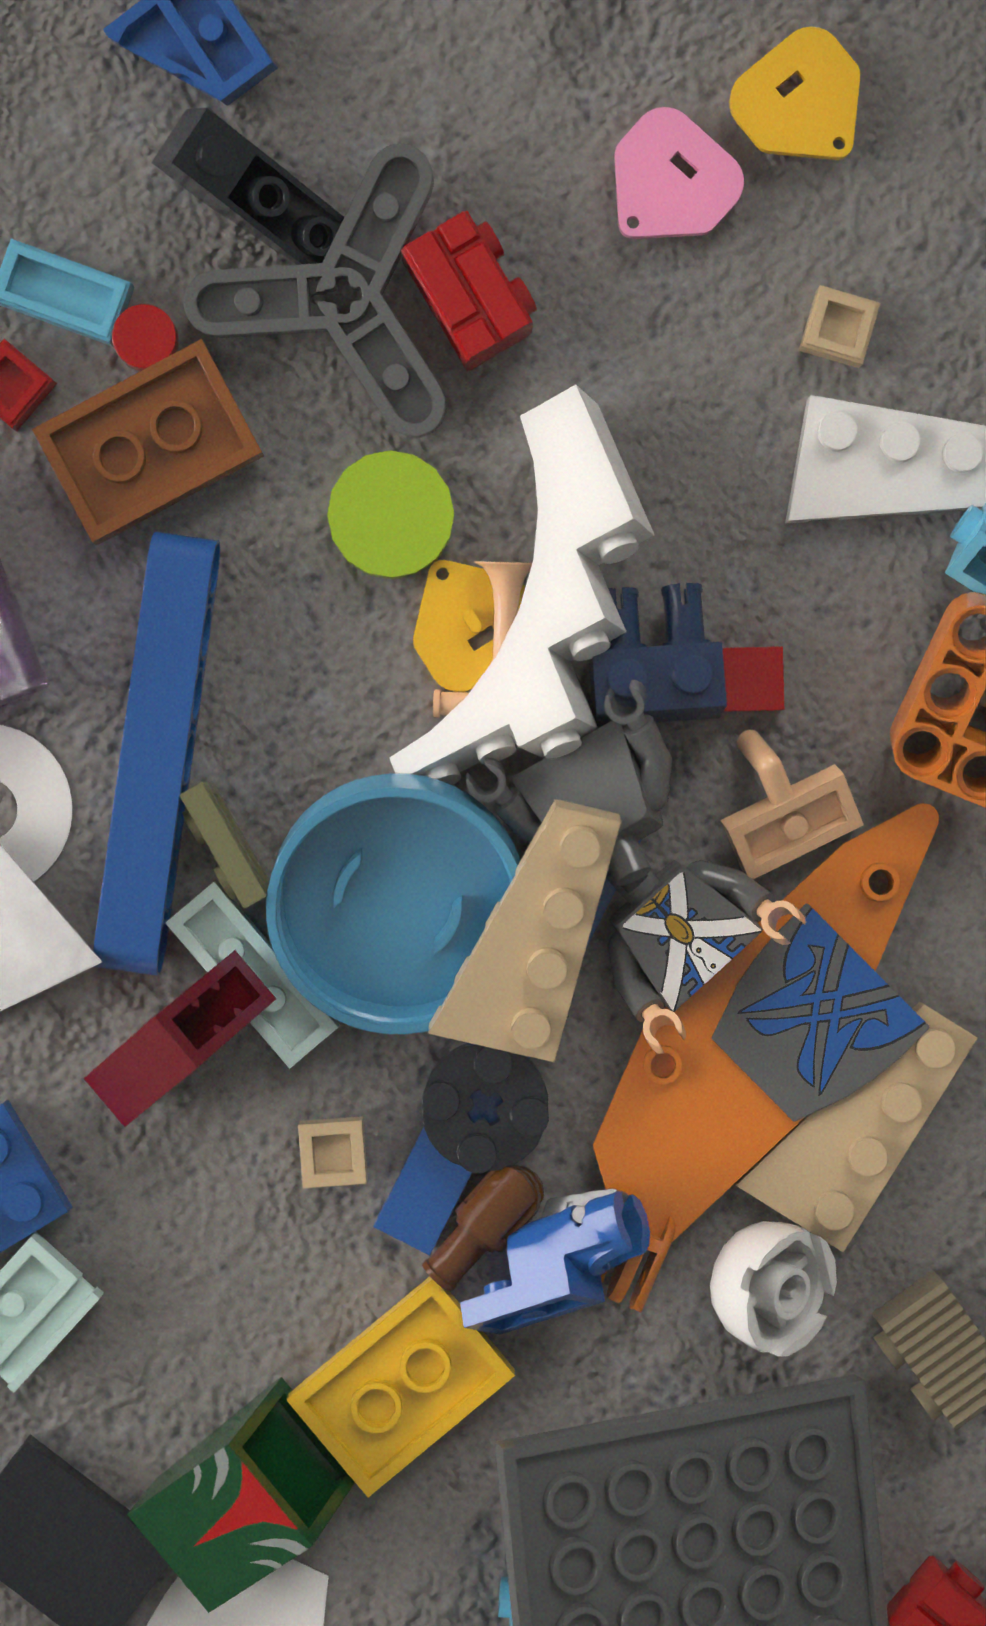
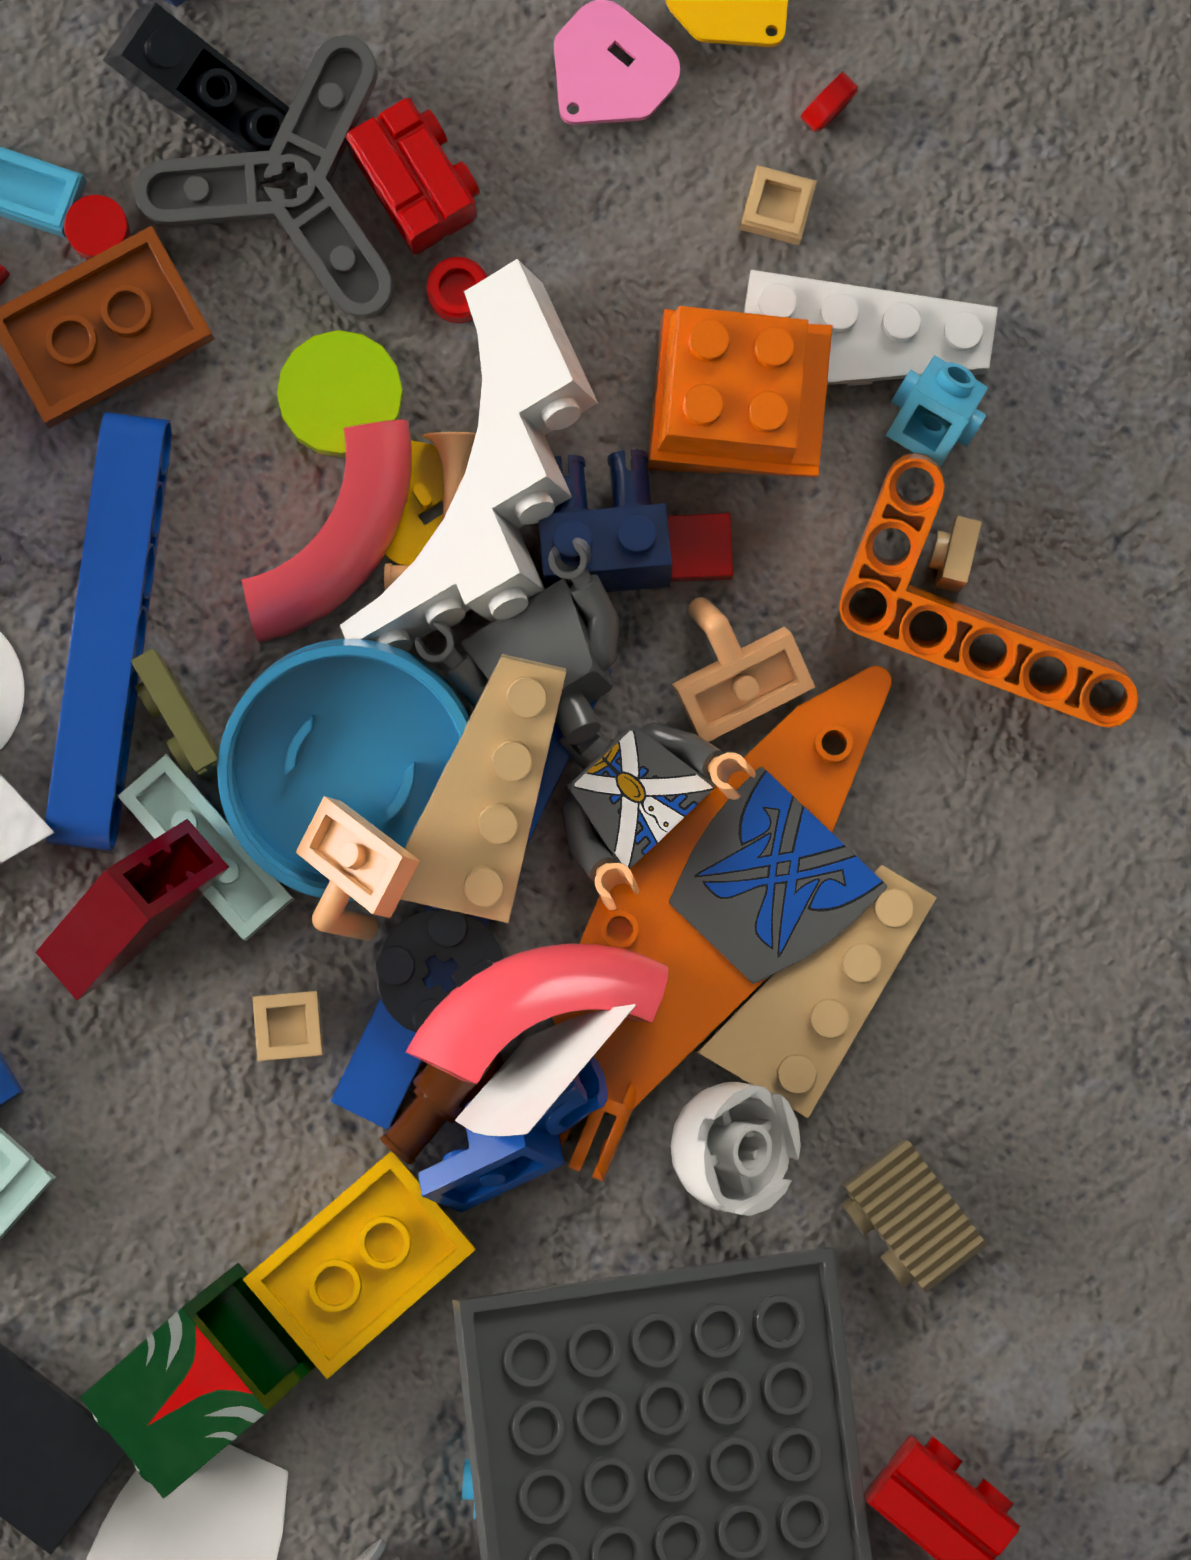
camera: 10 degrees left, 5 degrees down
(399, 671) = (348, 543): none -> coral brick
(407, 1006) = (359, 865): none -> light nougat plate
(504, 404) = (447, 288): none -> red tile
(575, 1135) = (529, 988): none -> coral brick
(585, 1224) = (539, 1074): none -> white sticker
(796, 527) = (738, 393): none -> orange piece
(897, 221) = (830, 102): none -> red tile

